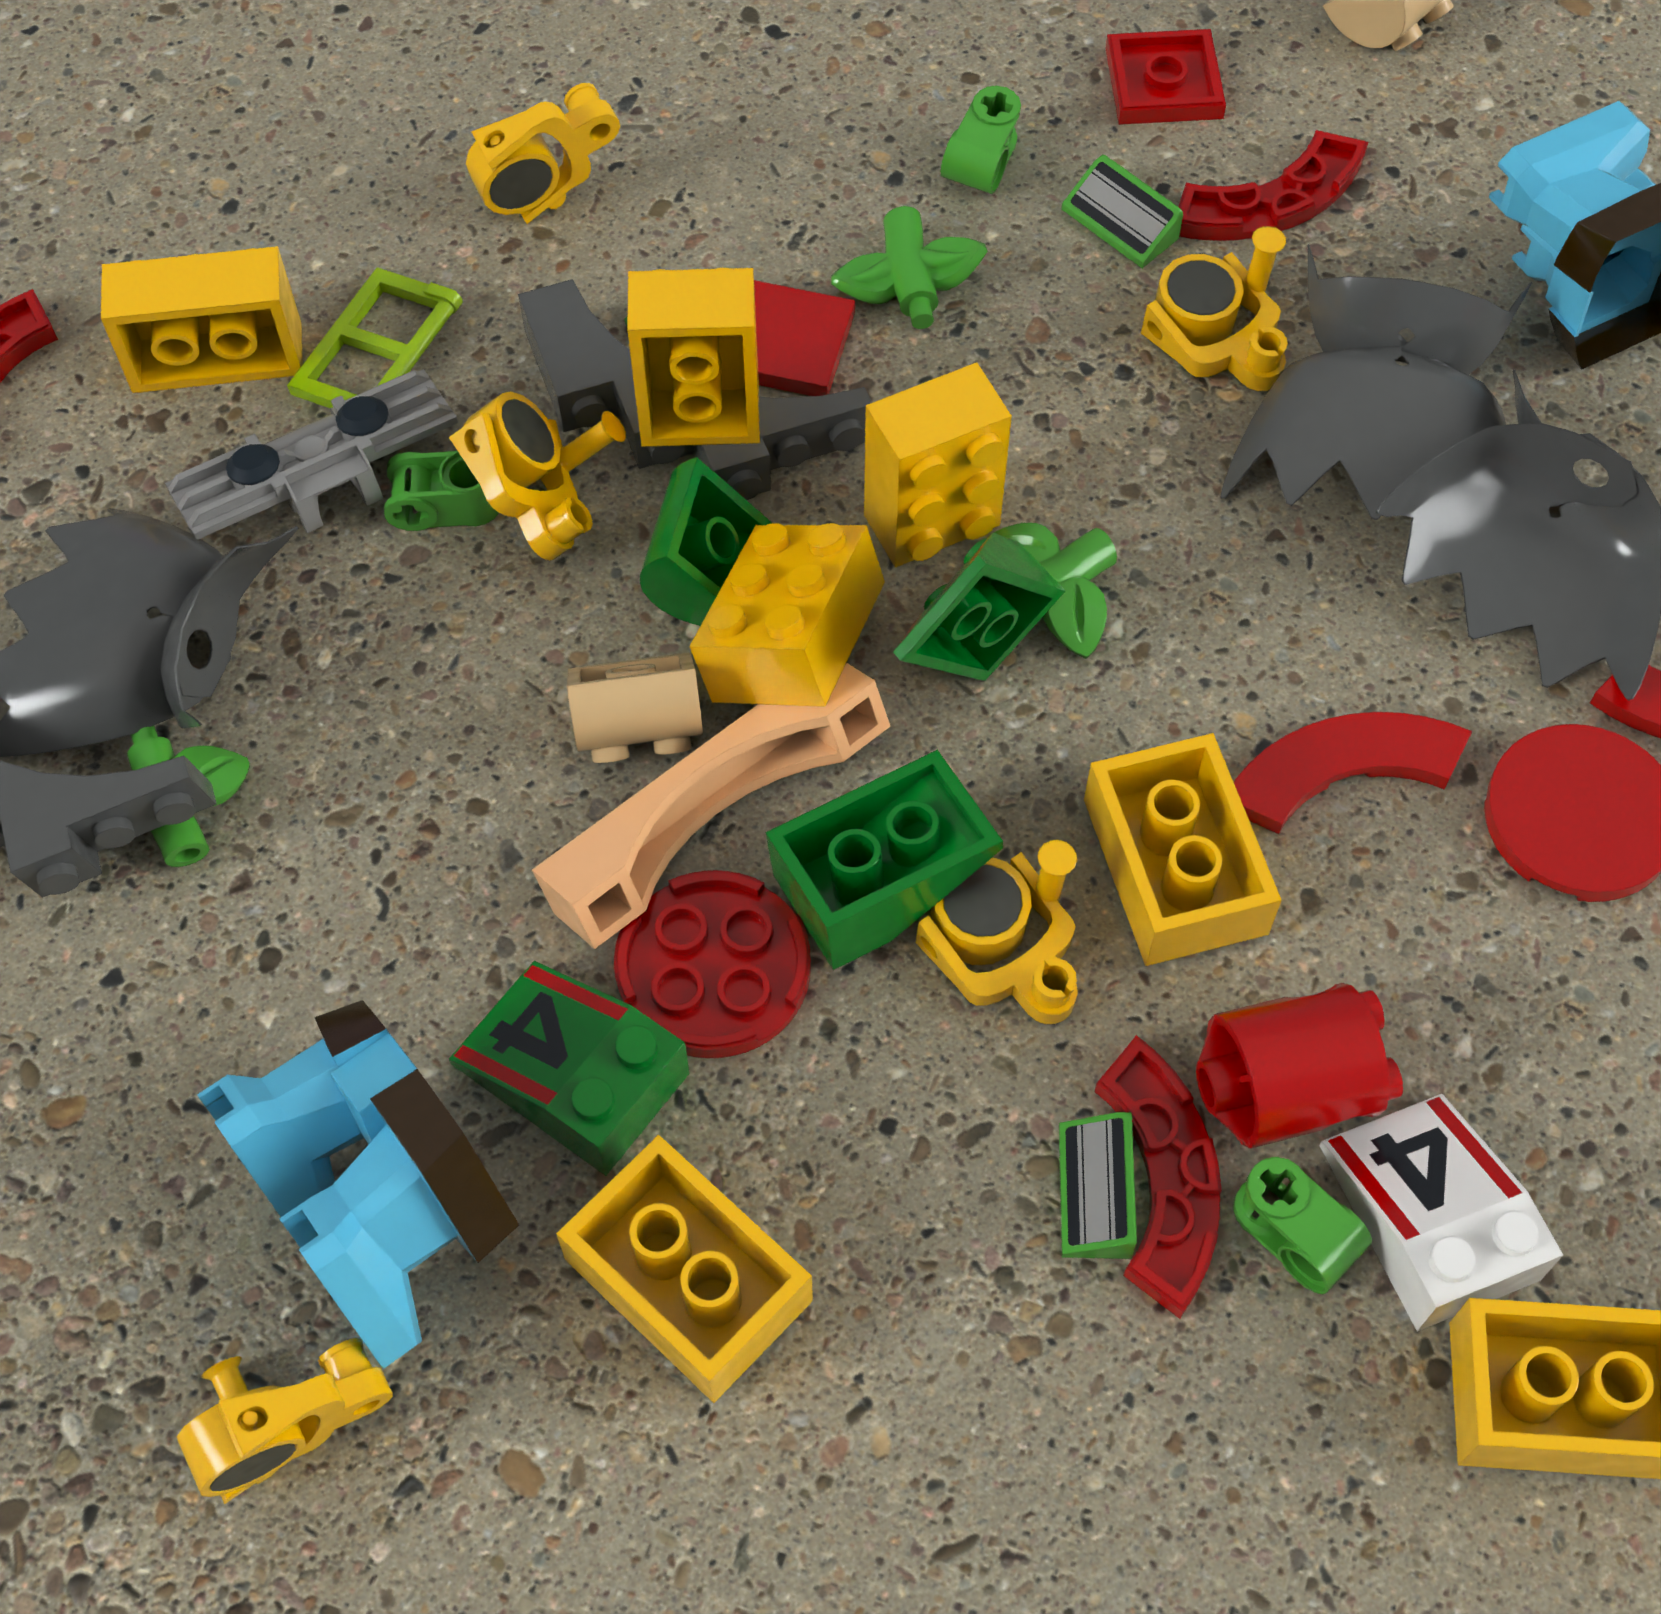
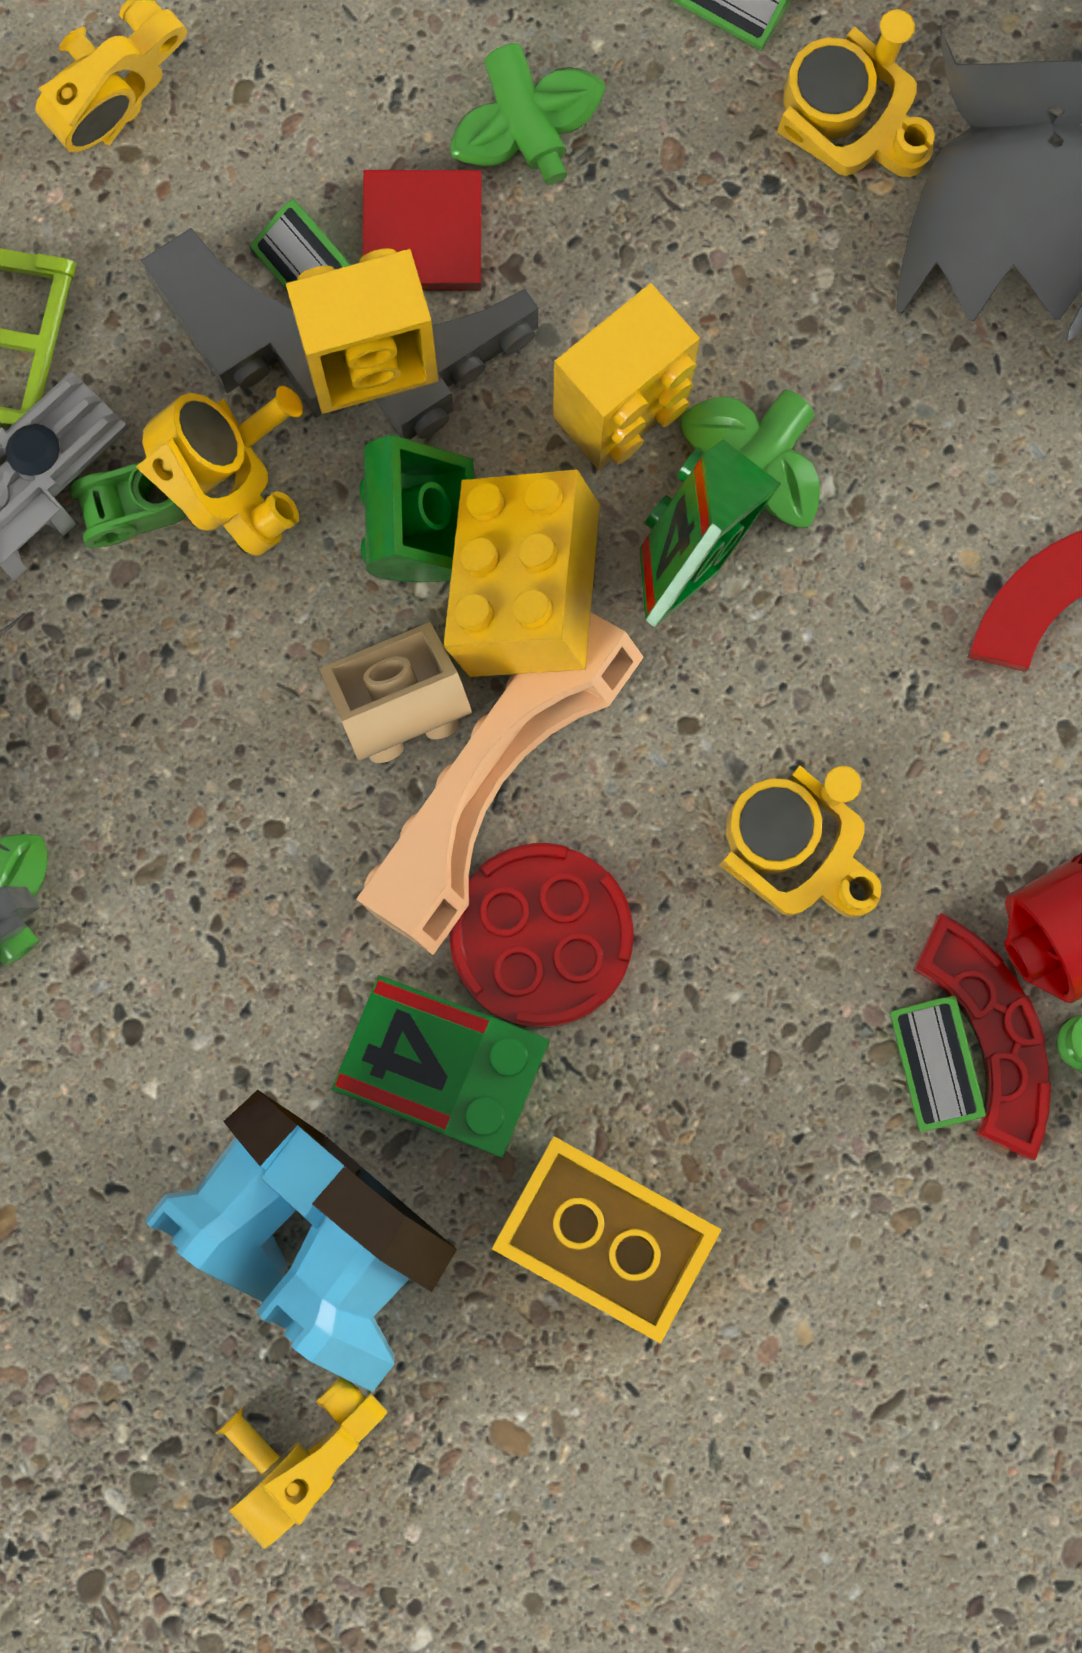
camera: 15 degrees left, 20 degrees up
(880, 856) = (677, 804): green slope -> none
(1180, 849) = (944, 724): yellow brick -> none

